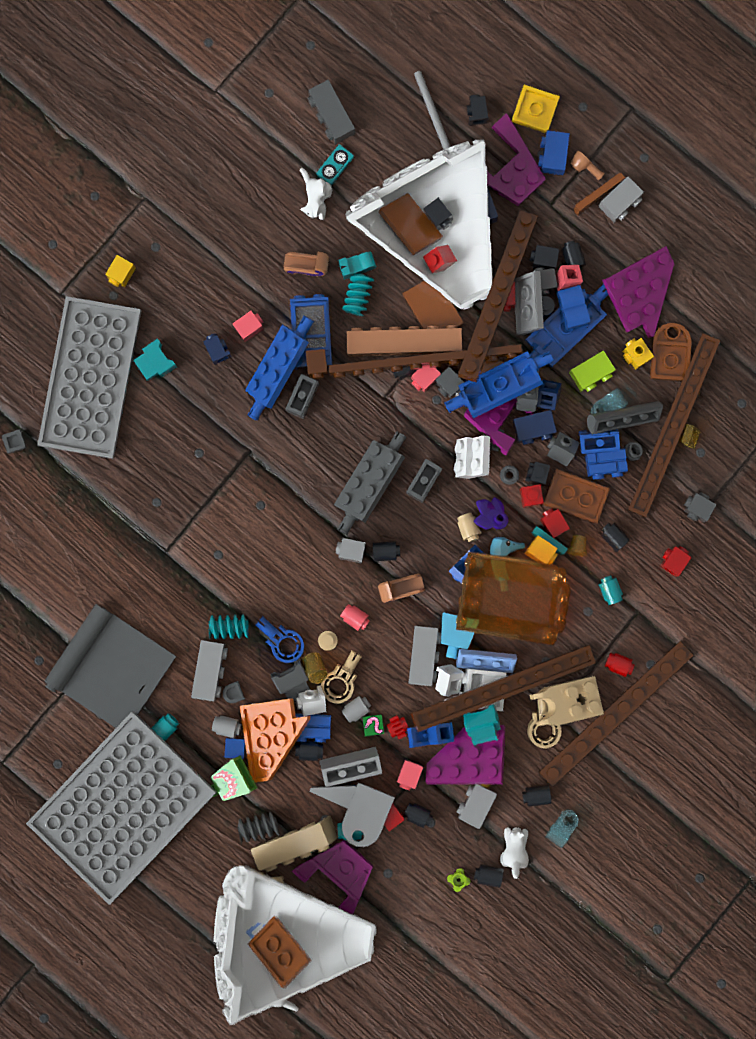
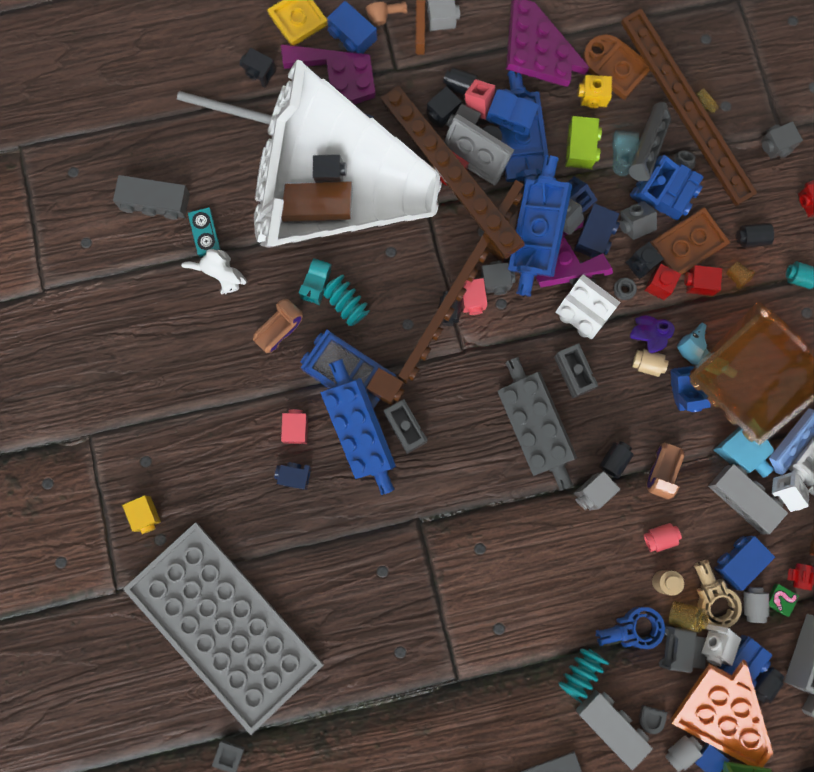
camera: 60 degrees left, 5 degrees down
(154, 361) = (257, 548): teal piece -> none
(378, 681) = (743, 562): none -> blue brick
(403, 342) = (426, 289): nougat brick -> none
(431, 307) = (413, 244): dark orange tile -> none
(440, 258) = (372, 198): red brick -> none
(538, 532) = (717, 297): teal tile -> none
(541, 551) = (726, 310): yellow brick -> none

